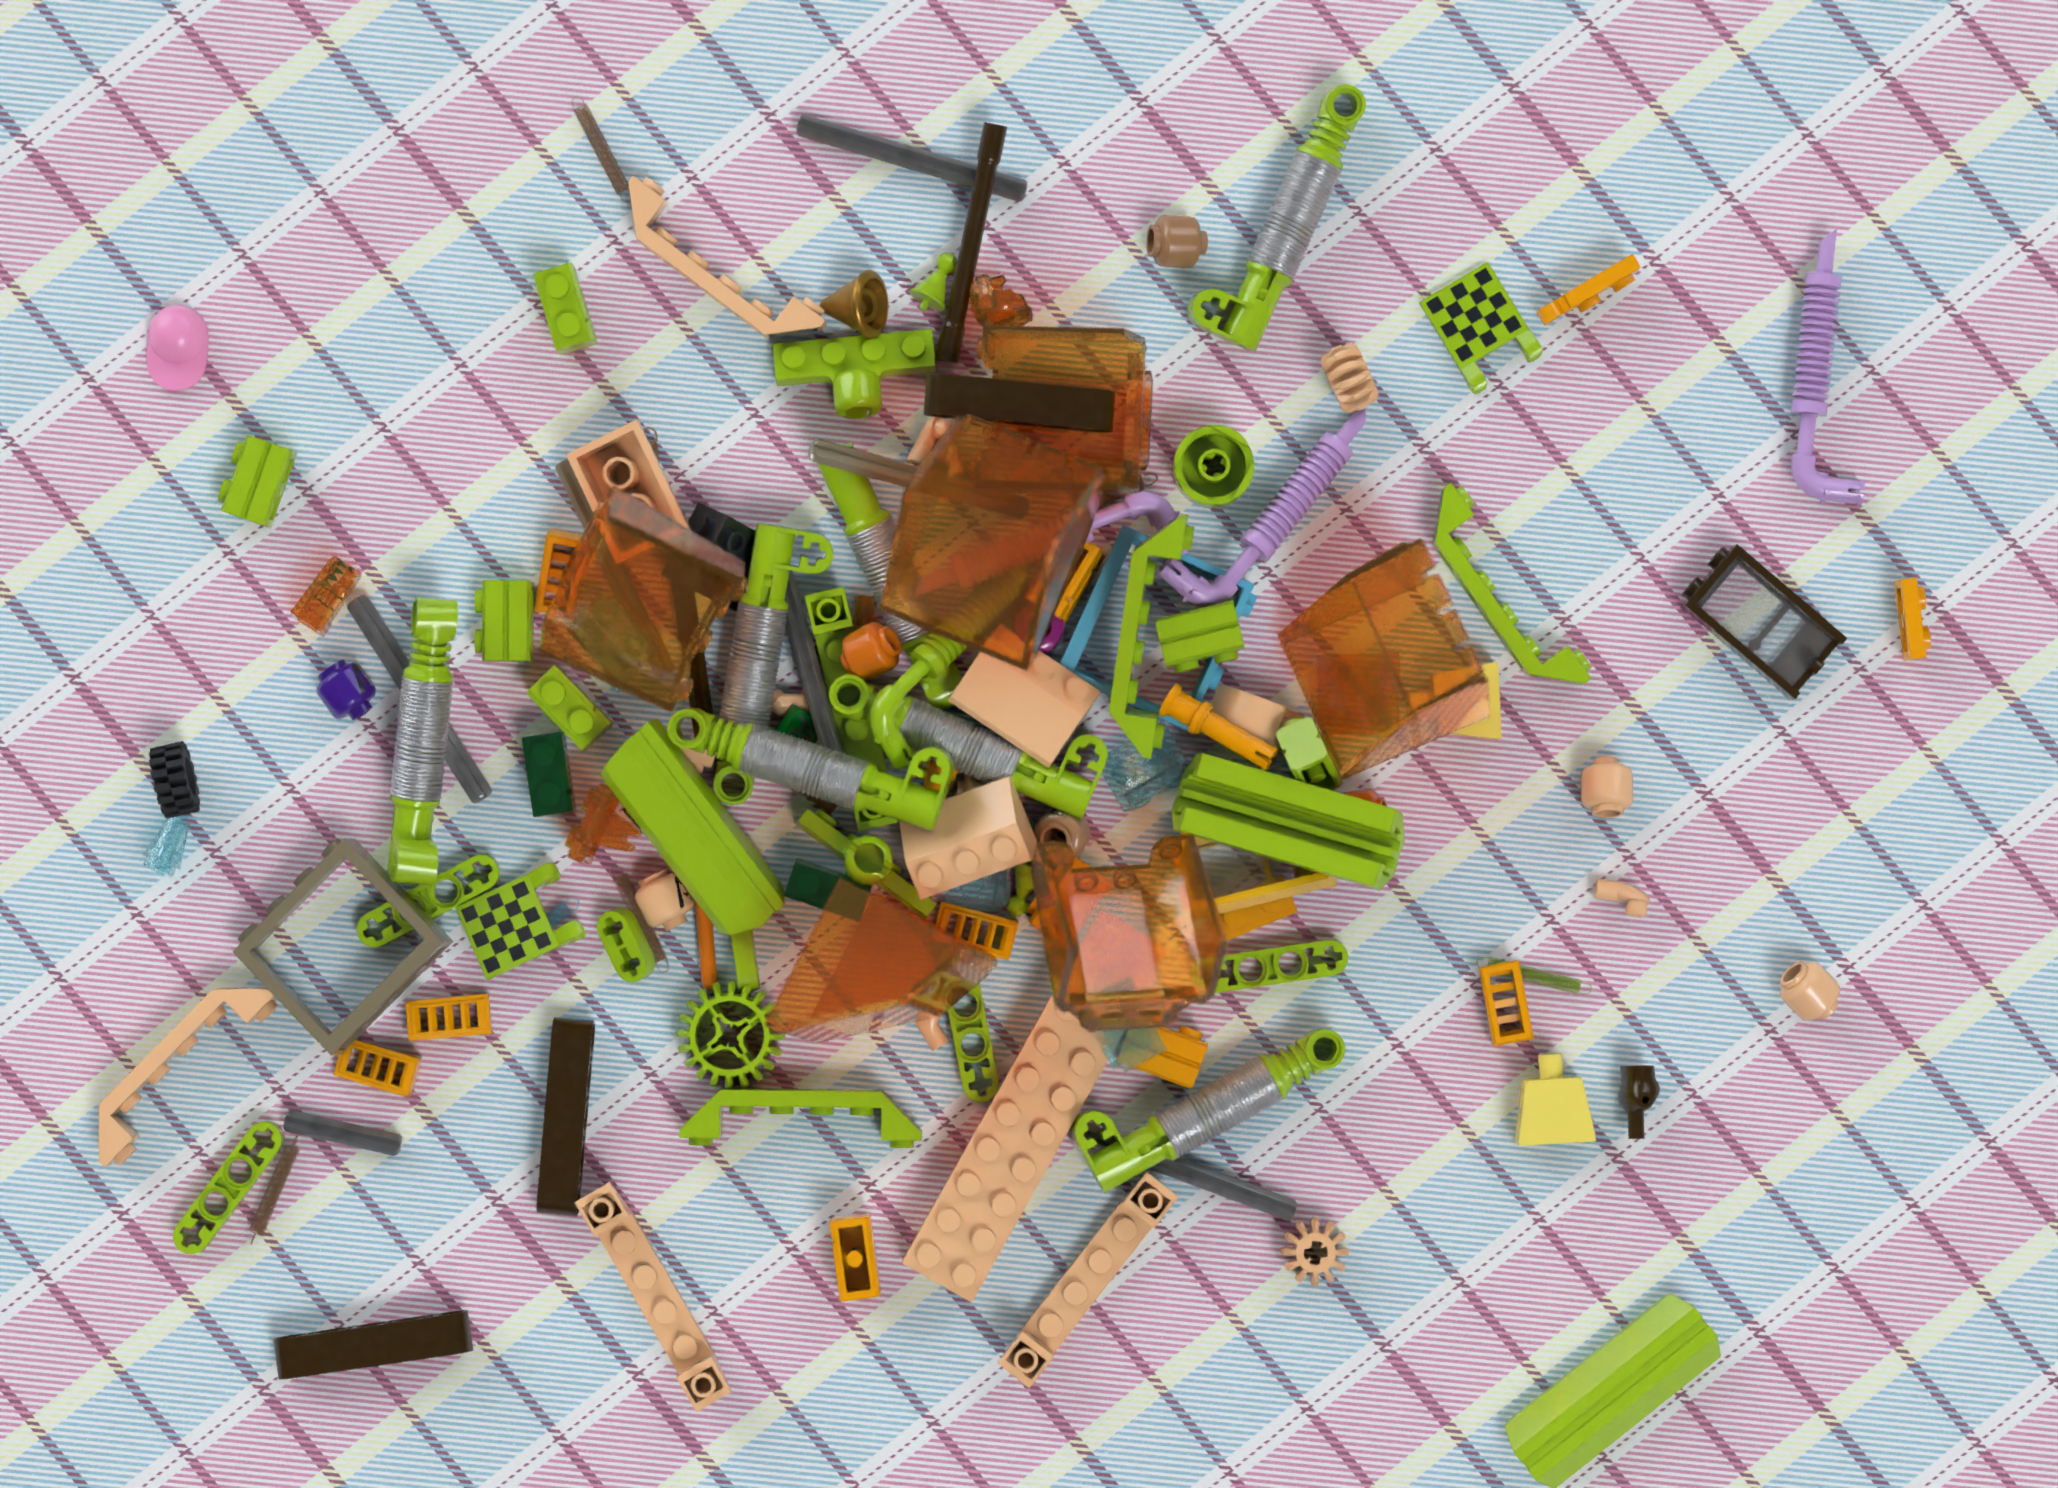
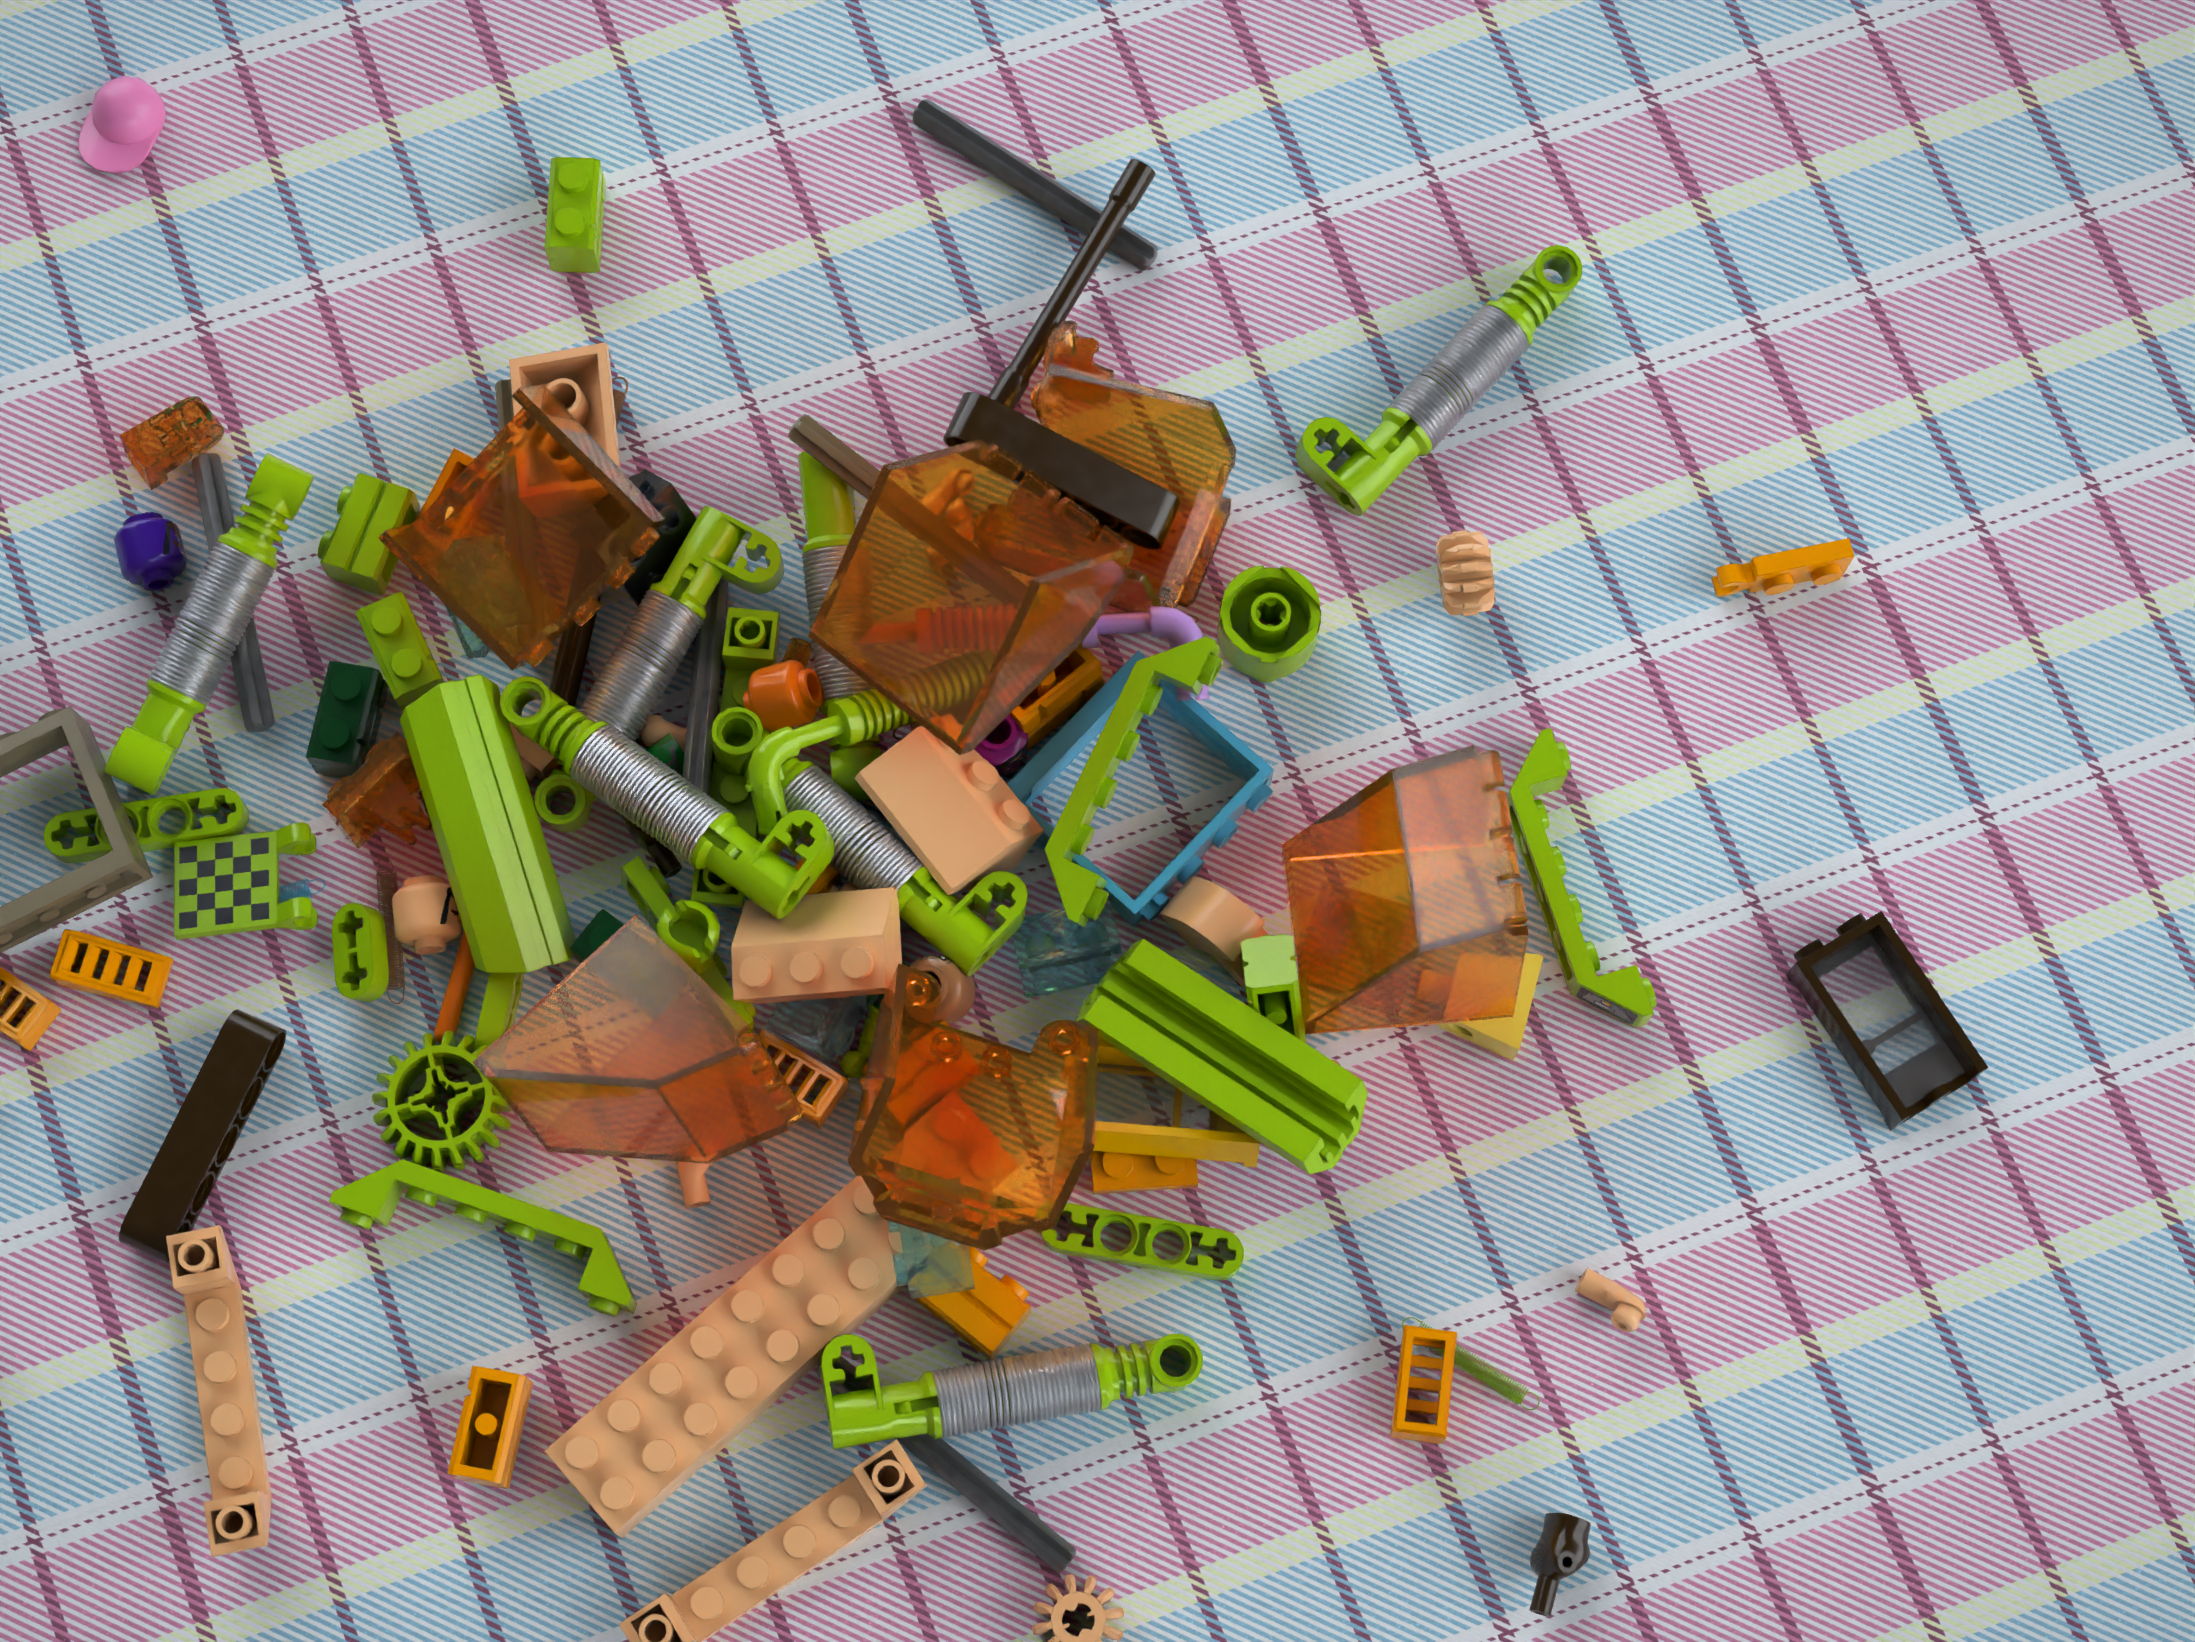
camera: 15 degrees right, 15 degrees down
(257, 480) = (147, 289): lime brick -> none
(604, 148) = (679, 29): medium nougat piece -> none
(646, 208) = (829, 310): light nougat slope -> none
(854, 366) = (881, 382): lime plate -> none
(860, 304) = (918, 316): pearl gold hat -> none
(932, 290) = (1004, 330): lime piece -> none
(977, 1024) = (738, 1189): lime beam -> none
(1176, 241) = (1309, 363): medium nougat head -> none
(1199, 636) = (1187, 801): lime brick -> none
(1201, 718) = (1156, 899): light orange pin -> none
(1275, 521) = (1319, 707): lavender piece -> none
(1475, 320) = (1638, 564): lime flag -> none
(1553, 1107) = (1445, 1537): light yellow torso -> none
(1607, 787) = (1632, 1157): light nougat head -> none
(1809, 990) = (1818, 1496): light nougat head -> none
(1813, 379) = (2026, 758): lavender piece -> none
(1910, 602) = (2075, 1057): light orange plate -> none

